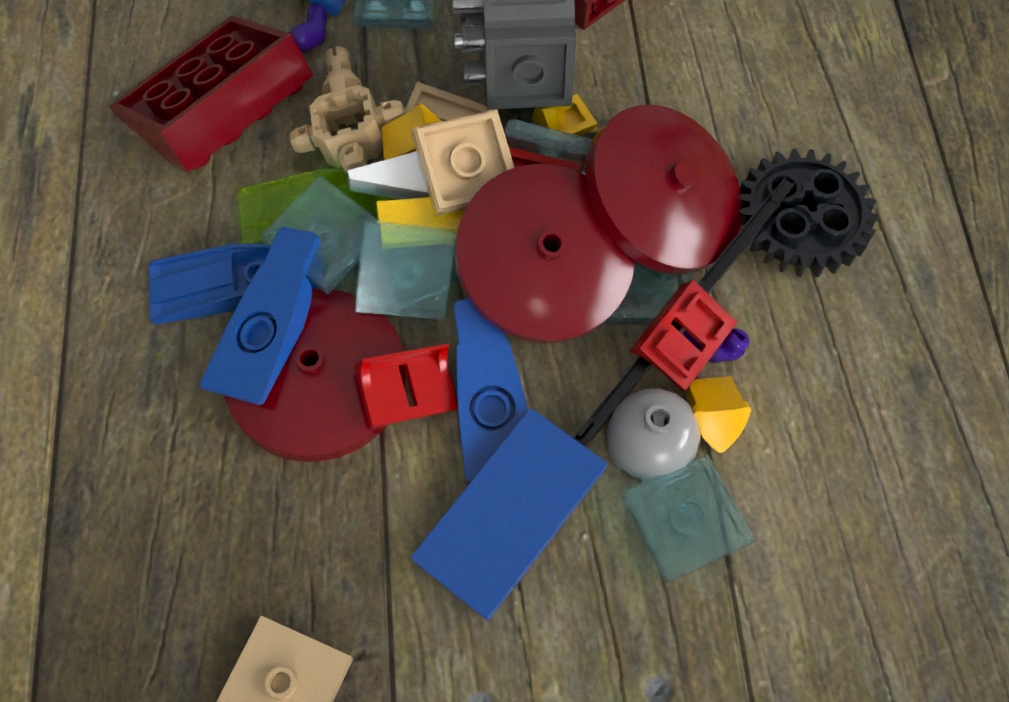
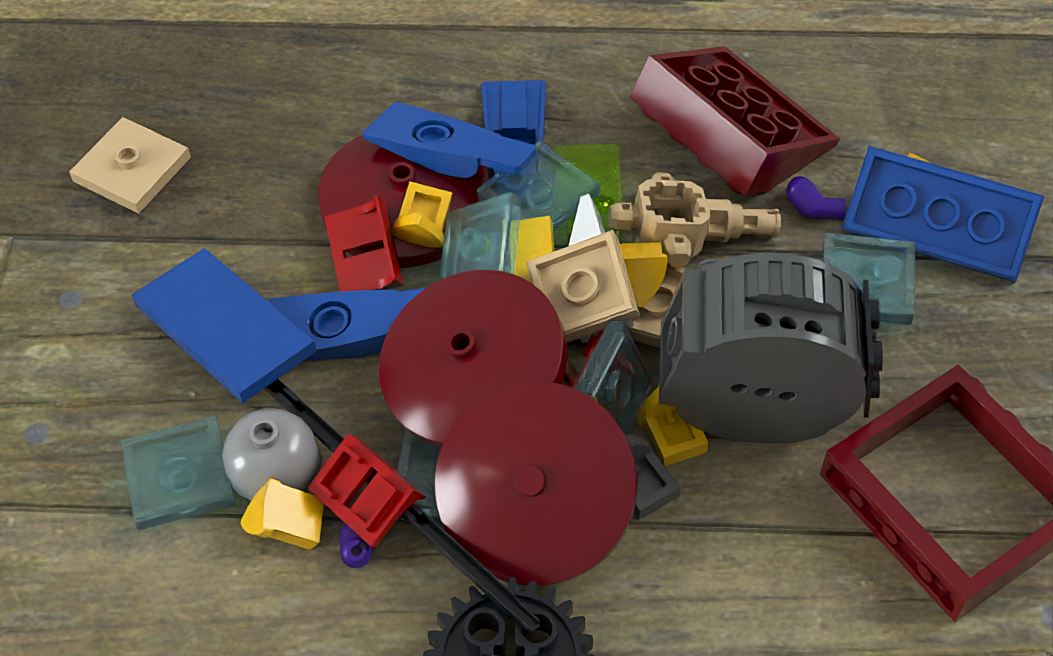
camera: 100 degrees right, 10 degrees down
(363, 331) = (423, 216): none -> yellow tile

